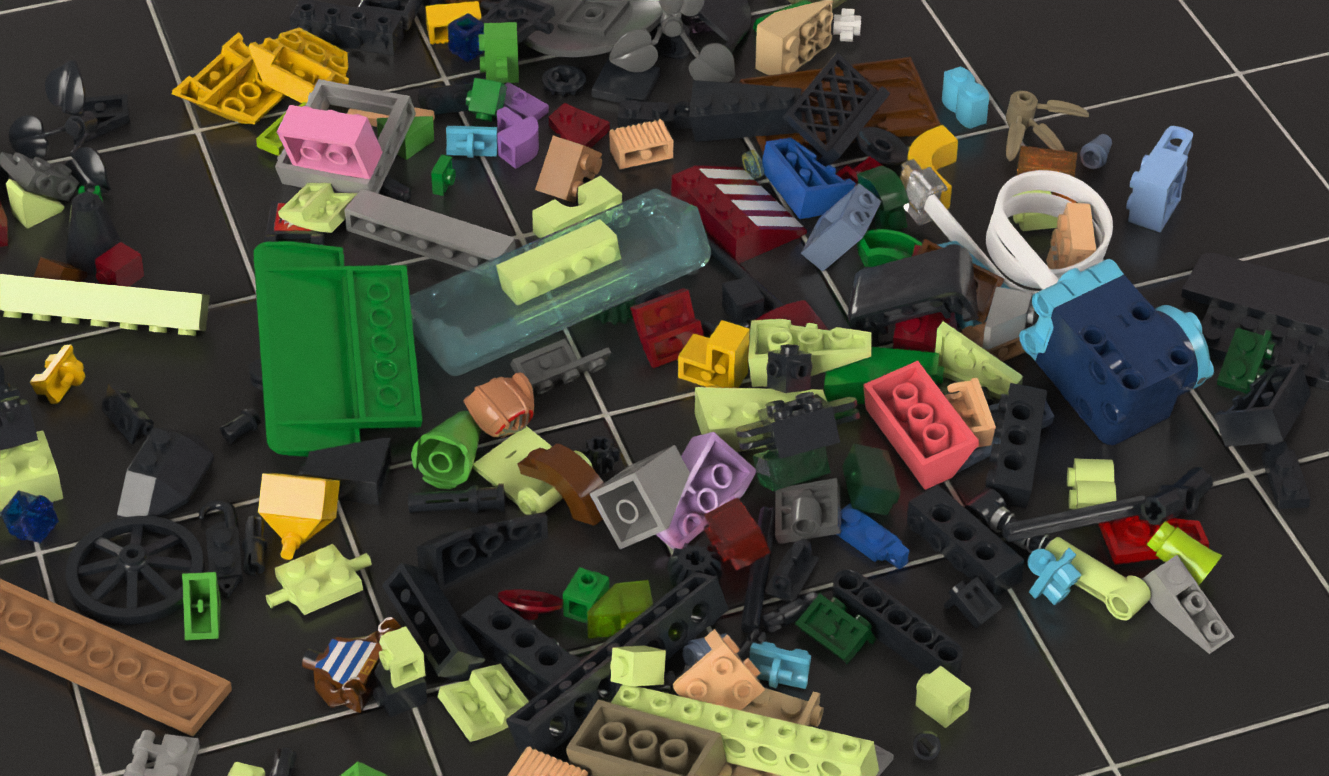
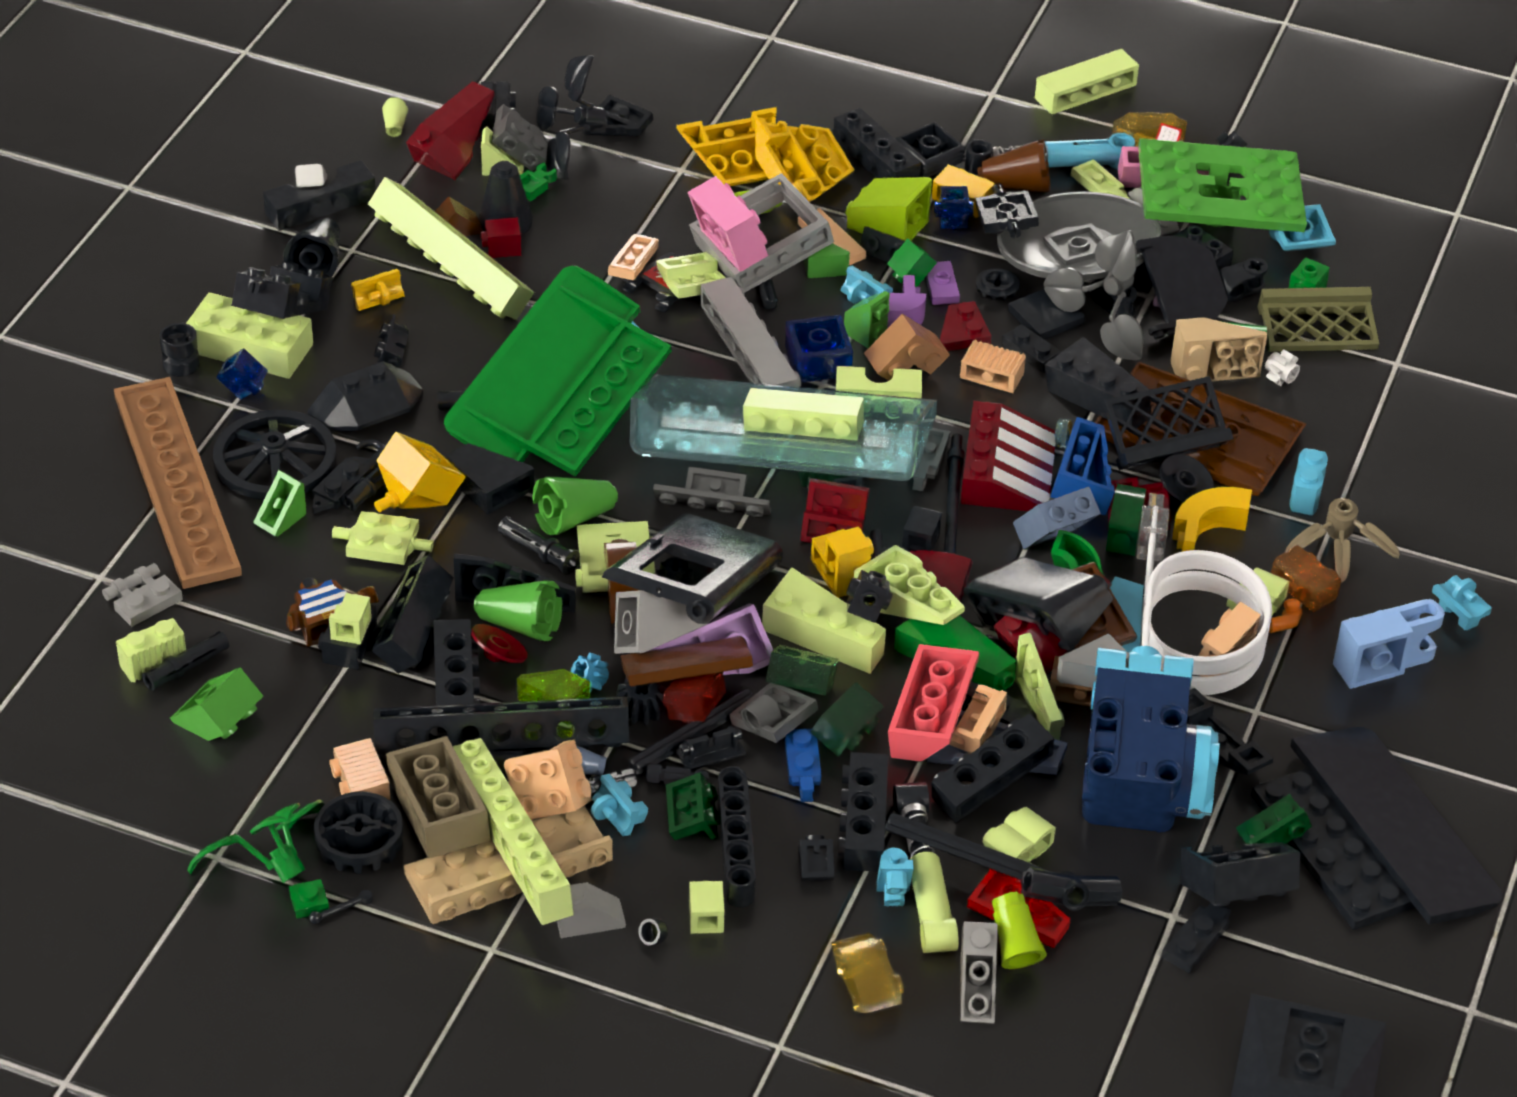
camera: 40 degrees right, 0 degrees up
(253, 220) = (633, 257): none -> light nougat tile
(417, 61) = (892, 206): none -> lime slope
(442, 175) = (811, 302): green plate -> none
(483, 701) = (390, 689): yellowish green slope -> none
(498, 203) = (818, 347): none -> clear blue brick
(500, 52) = (961, 232): bright green brick -> none
(500, 402) = (632, 492): nougat piece -> none
(506, 161) = (868, 319): none -> bright green slope
(513, 560) = (522, 608): none -> bright green cone
(583, 593) = (541, 659): green brick -> none
(591, 413) = (736, 556): none -> black piece
(637, 666) = (498, 731): yellowish green brick -> none
(639, 572) = (591, 669): none -> dark azure gear
(708, 512) = (686, 661): none -> reddish brown tile
(798, 424) = (824, 639): black brick -> none
(1095, 152) = (1371, 590): sand blue cone -> none
(1118, 661) = (867, 973): none -> clear yellow brick
(1161, 117) = (1460, 598): none -> medium azure hips

